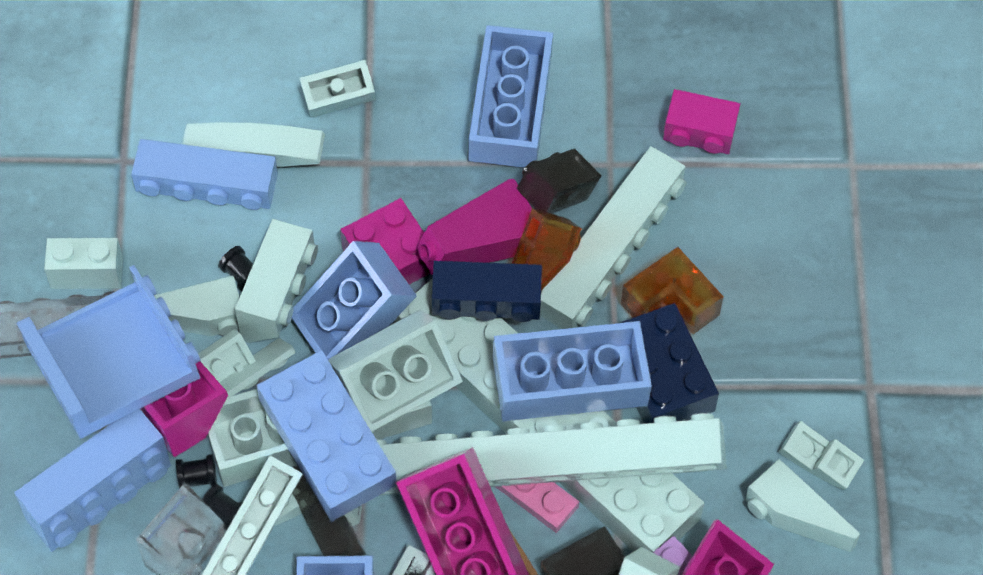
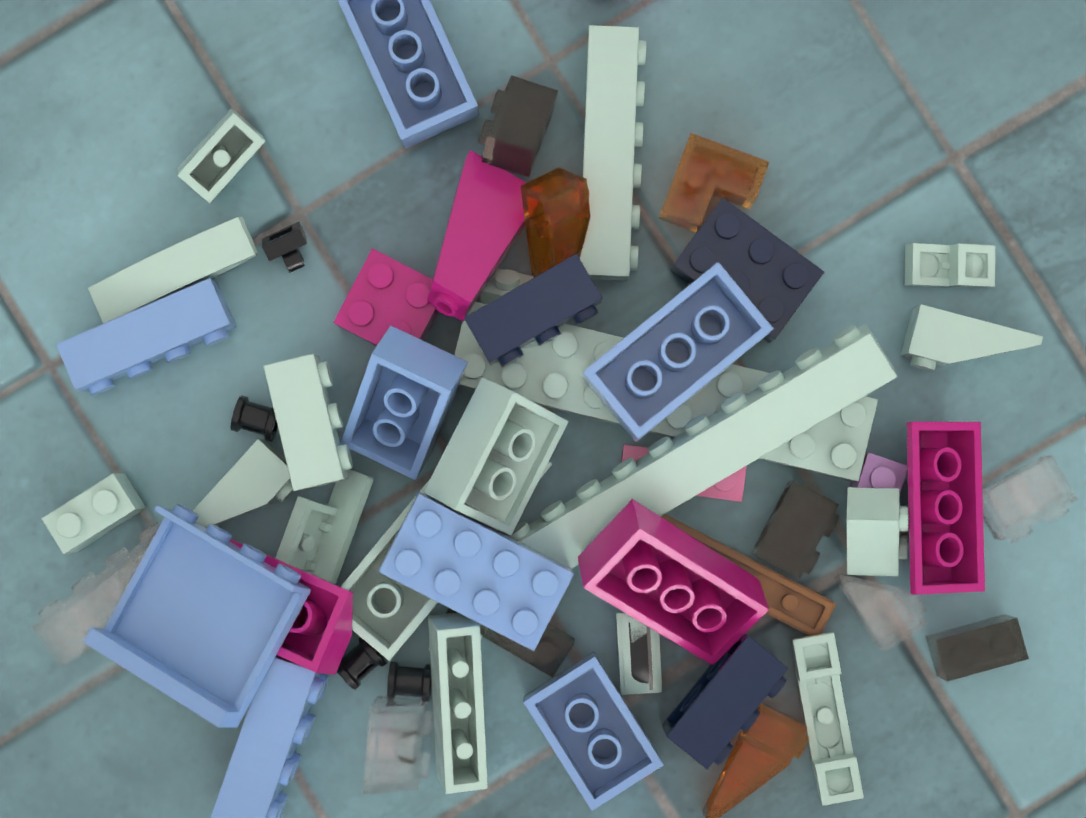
camera: 25 degrees left, 25 degrees up
(342, 170) = (286, 244): none -> black tile

